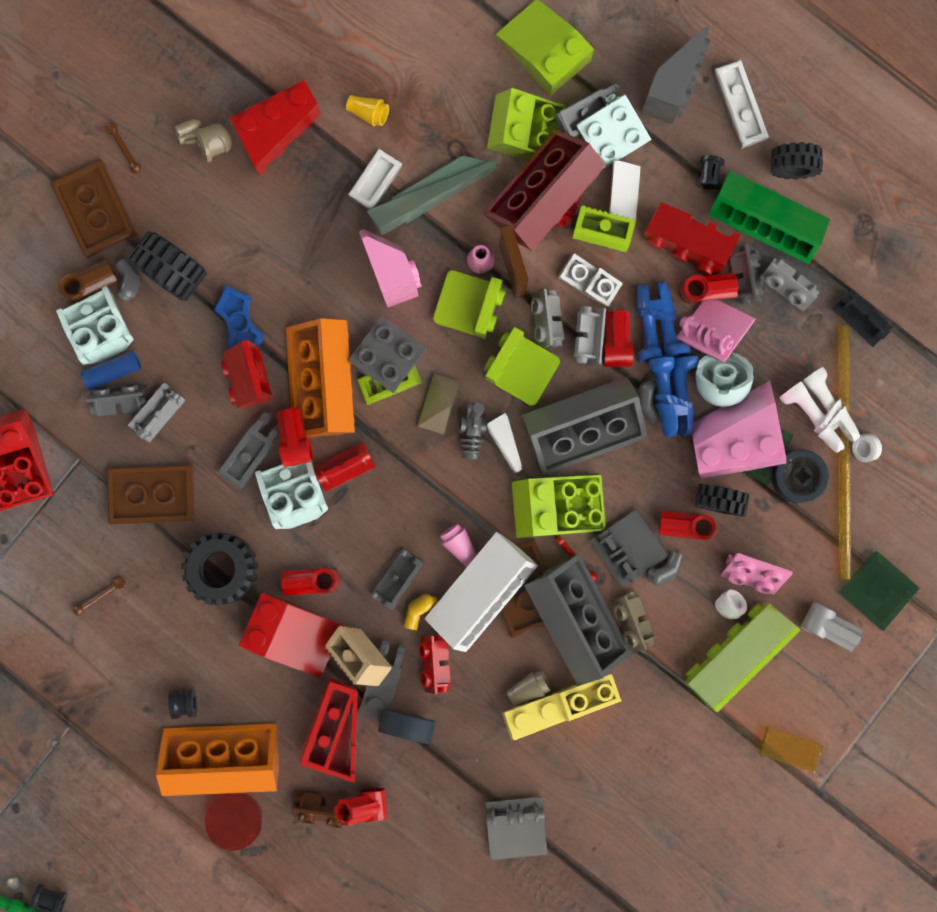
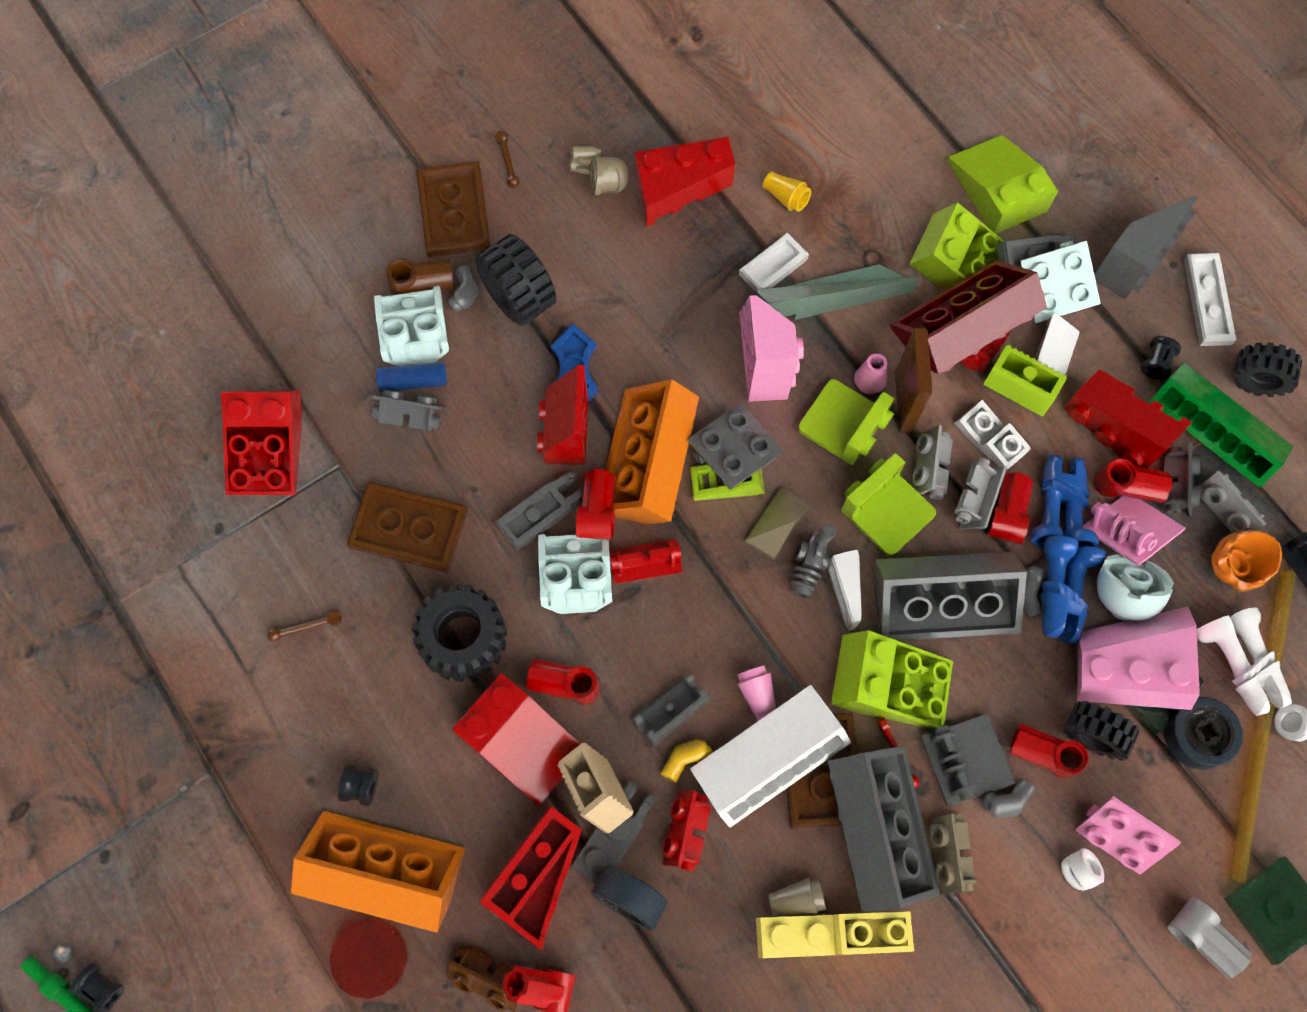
camera: 10 degrees right, 15 degrees down
(156, 412) = (447, 436): hinge -> none
(740, 656) = (1085, 938): lime slope -> none
(807, 328) = (1246, 559): none -> orange hair

